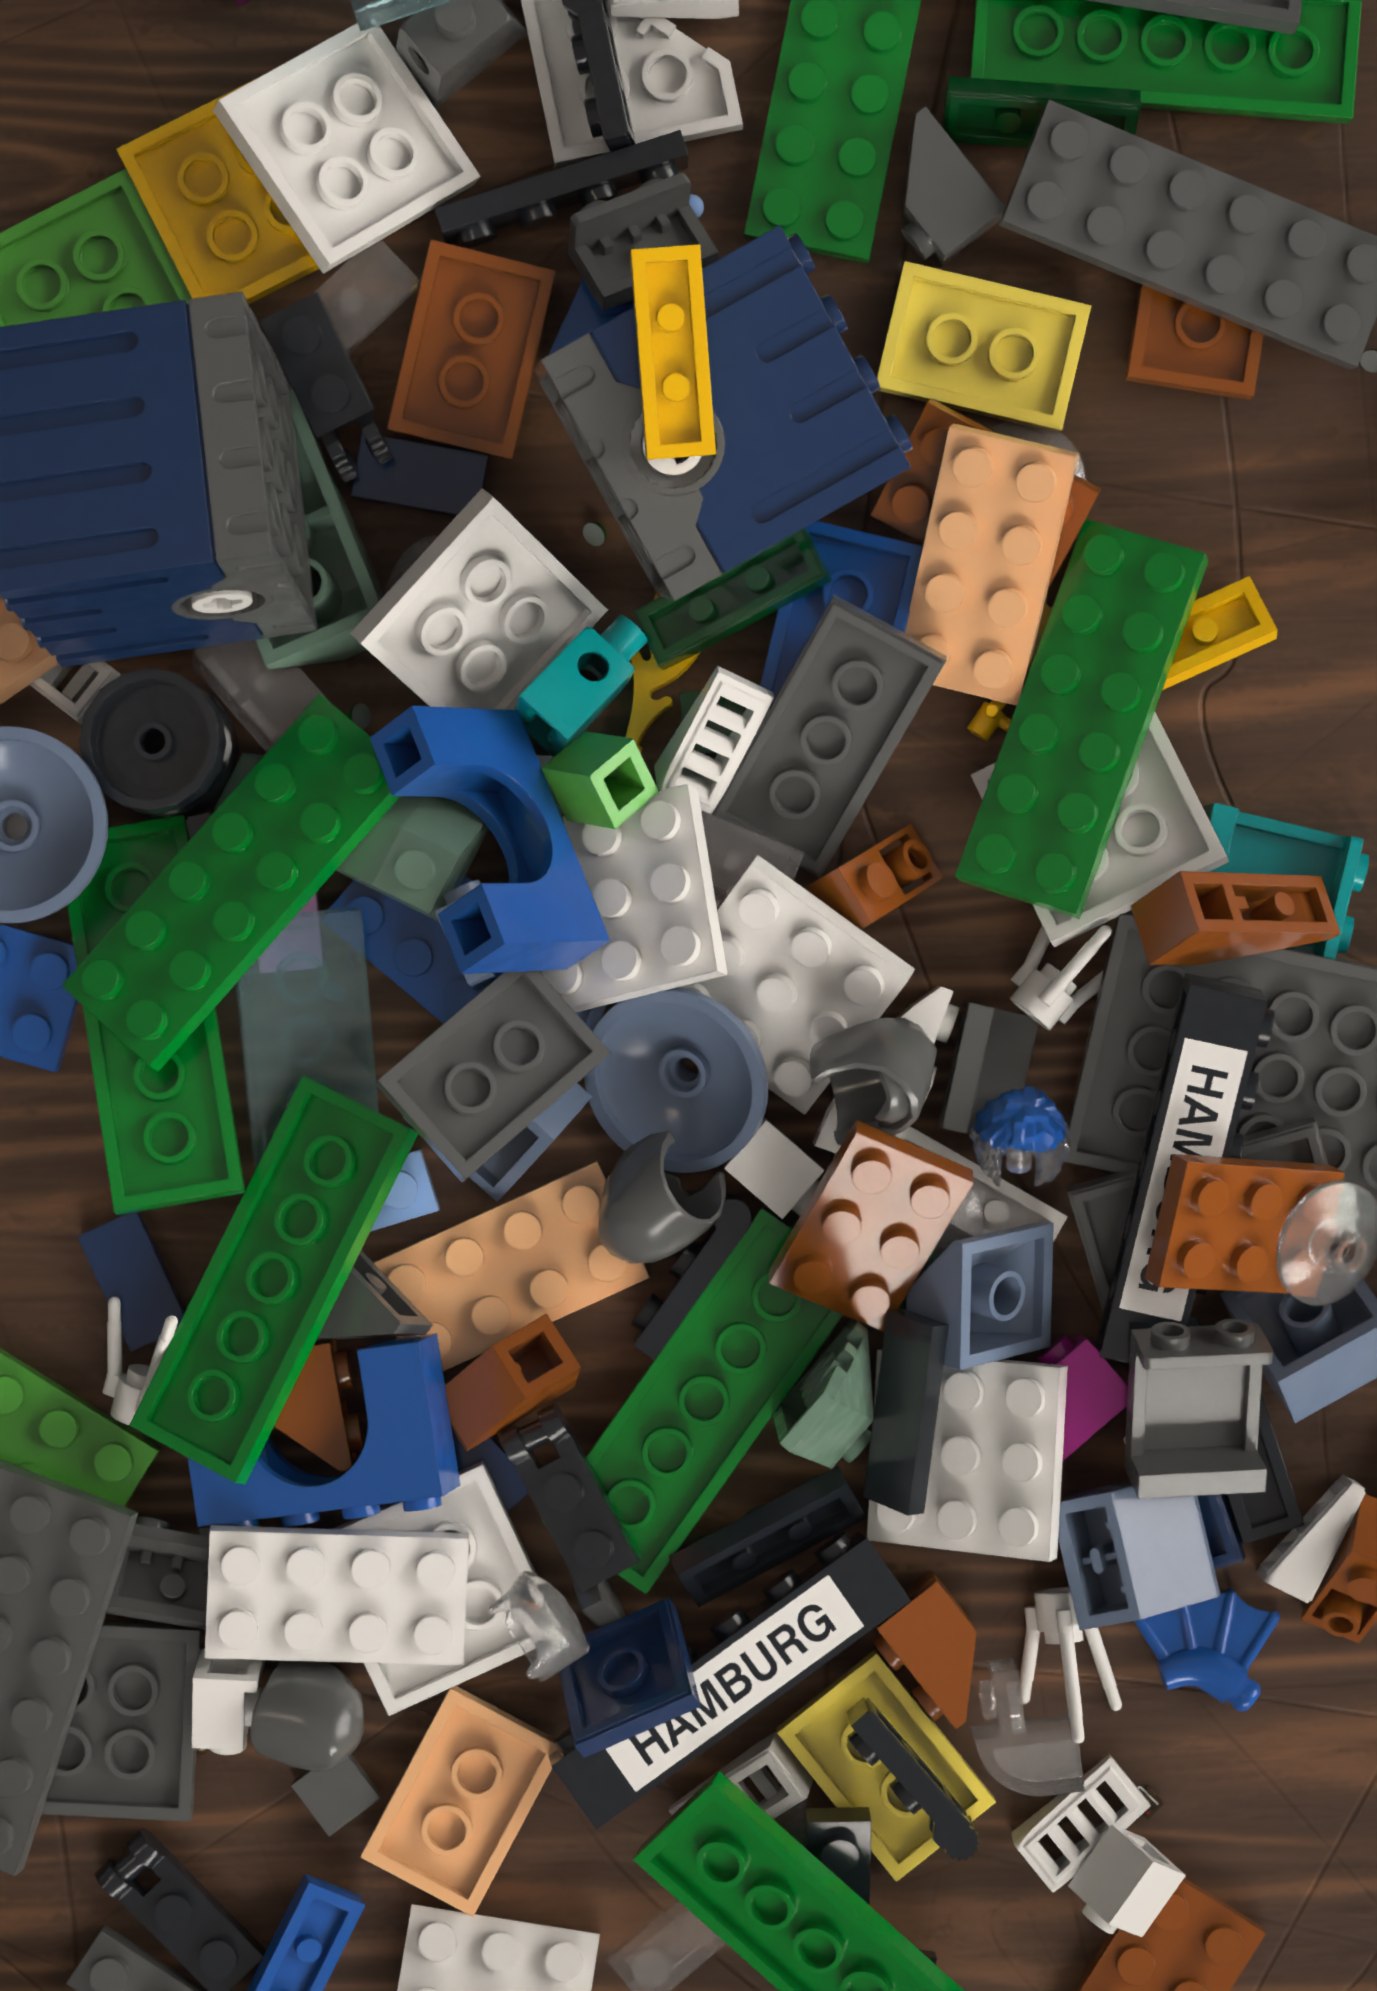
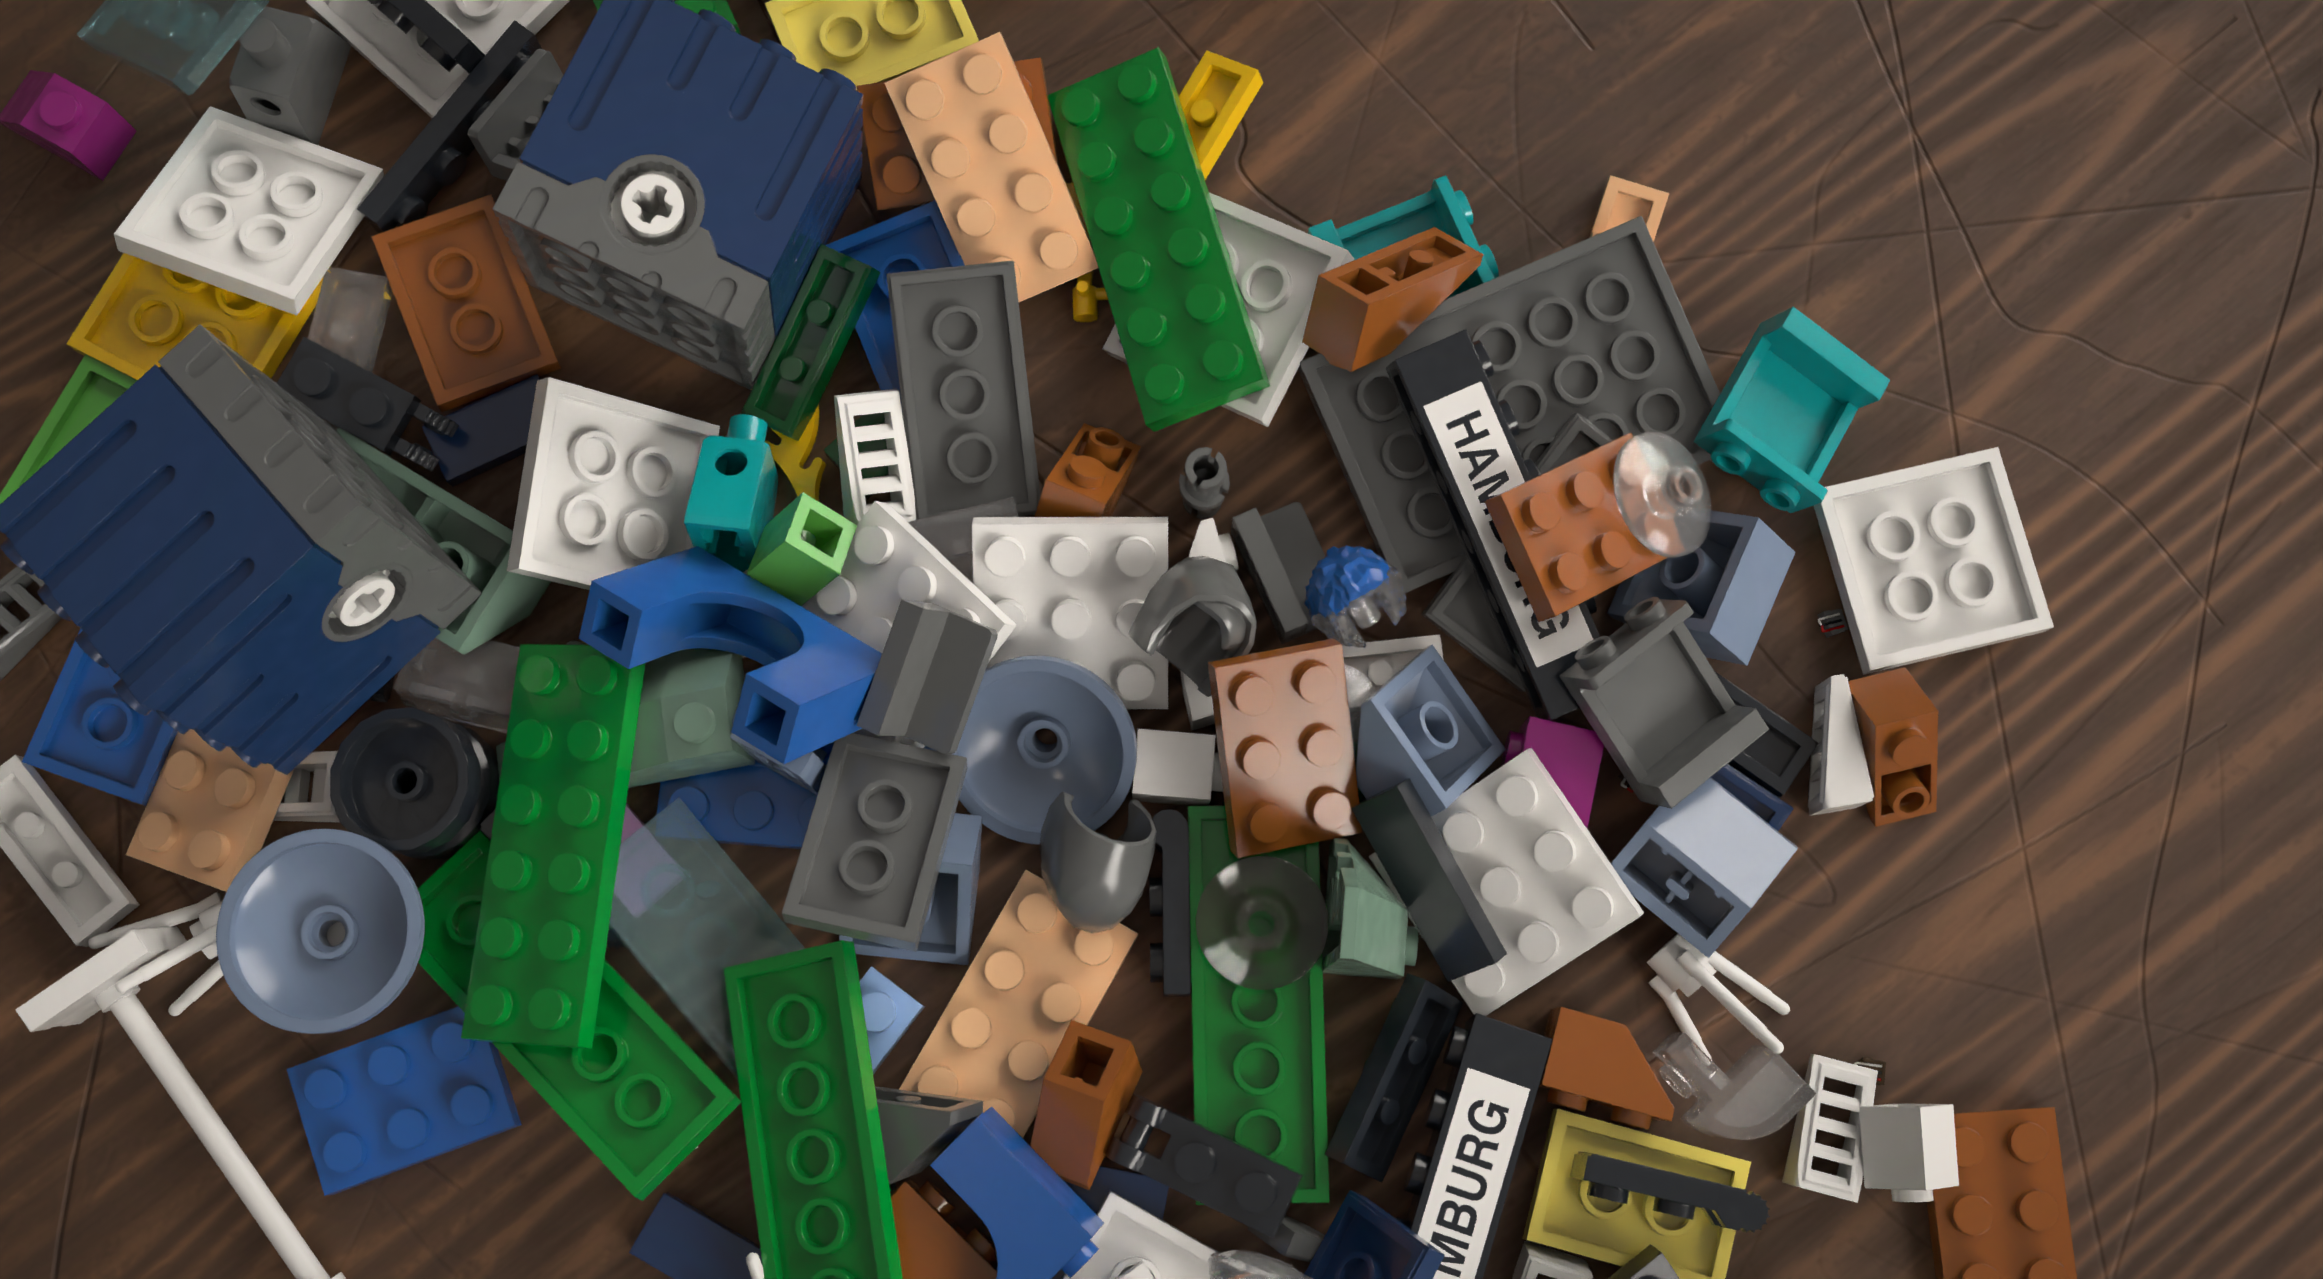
camera: 35 degrees left, 10 degrees down
(594, 533) = (668, 378): light grey piece -> none
(627, 970) = (928, 676): none -> dark grey panel
(672, 352) = (596, 124): yellow plate -> none
(758, 1380) = (1291, 902): none -> clear smoke dish
(982, 959) = (1204, 482): none -> dark grey pin
(1047, 992) = (1289, 473): white plant -> none
(1211, 1646) = (1820, 902): blue arm -> none

